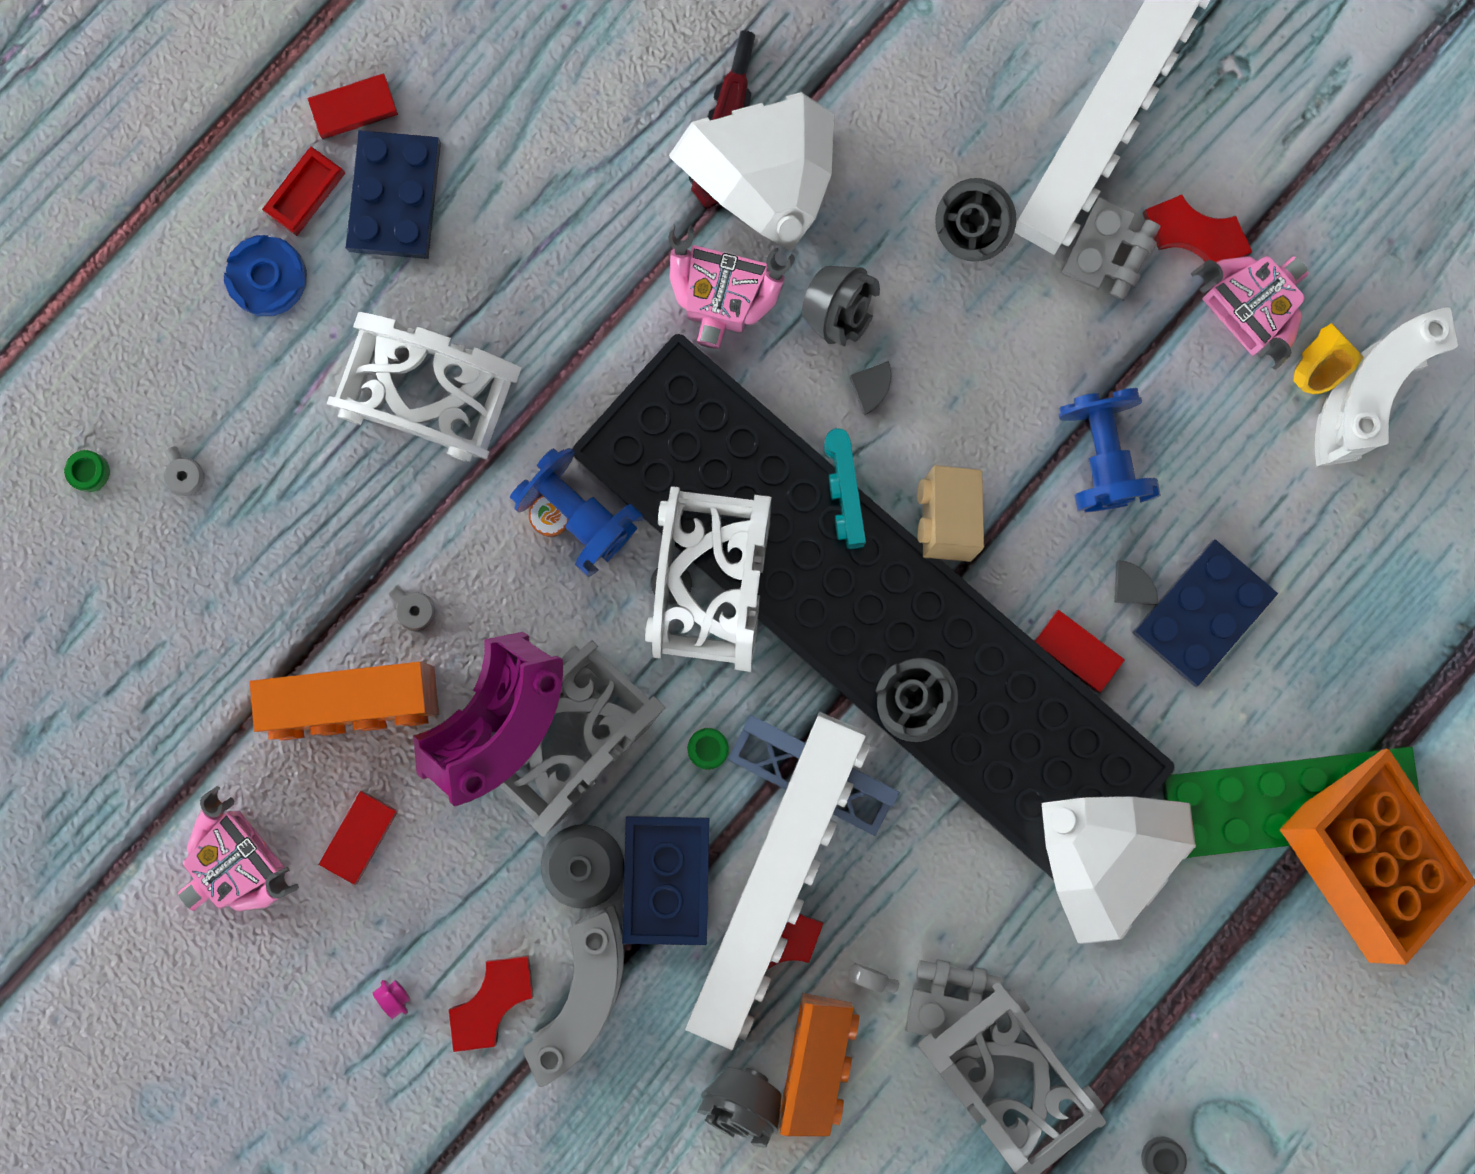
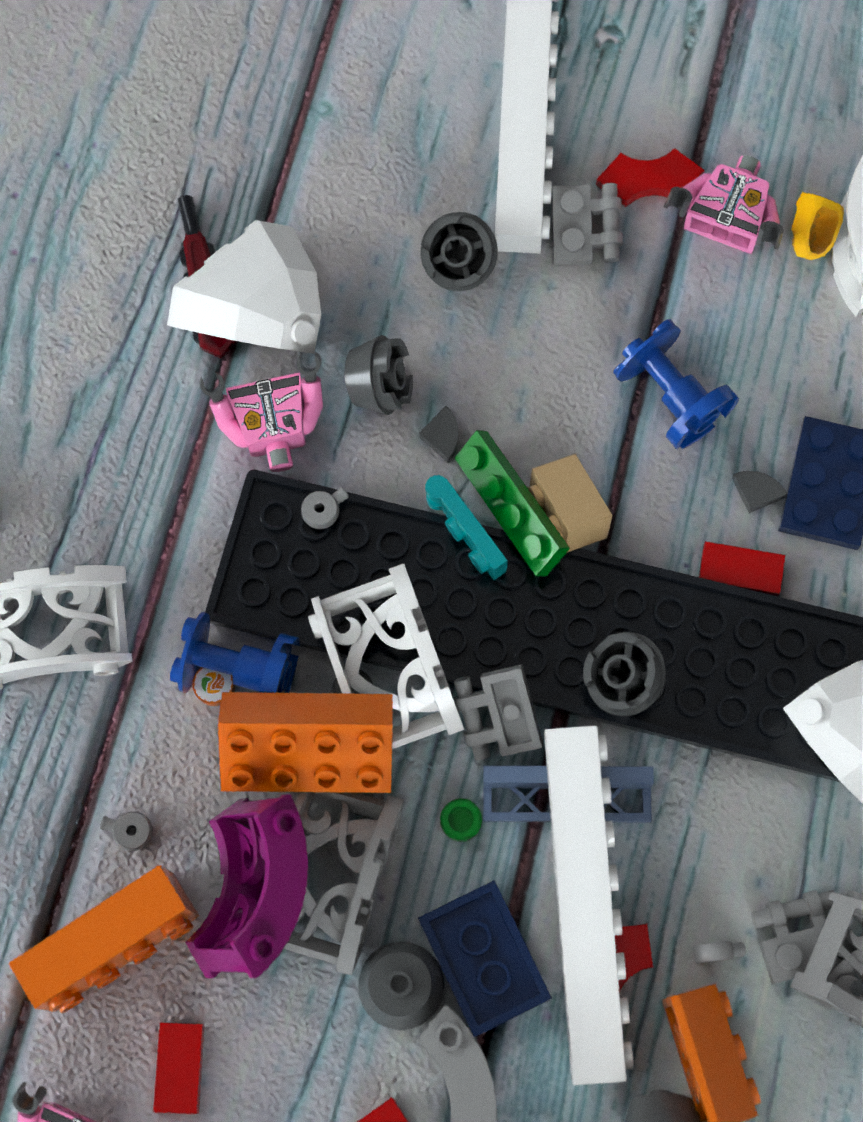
camera: 25 degrees left, 10 degrees down
(602, 615) = (305, 742): none -> orange piece
(731, 397) = (324, 500): none -> light grey piece
(800, 675) = (510, 709): none -> light grey plate
(899, 487) = (512, 503): none -> green plate

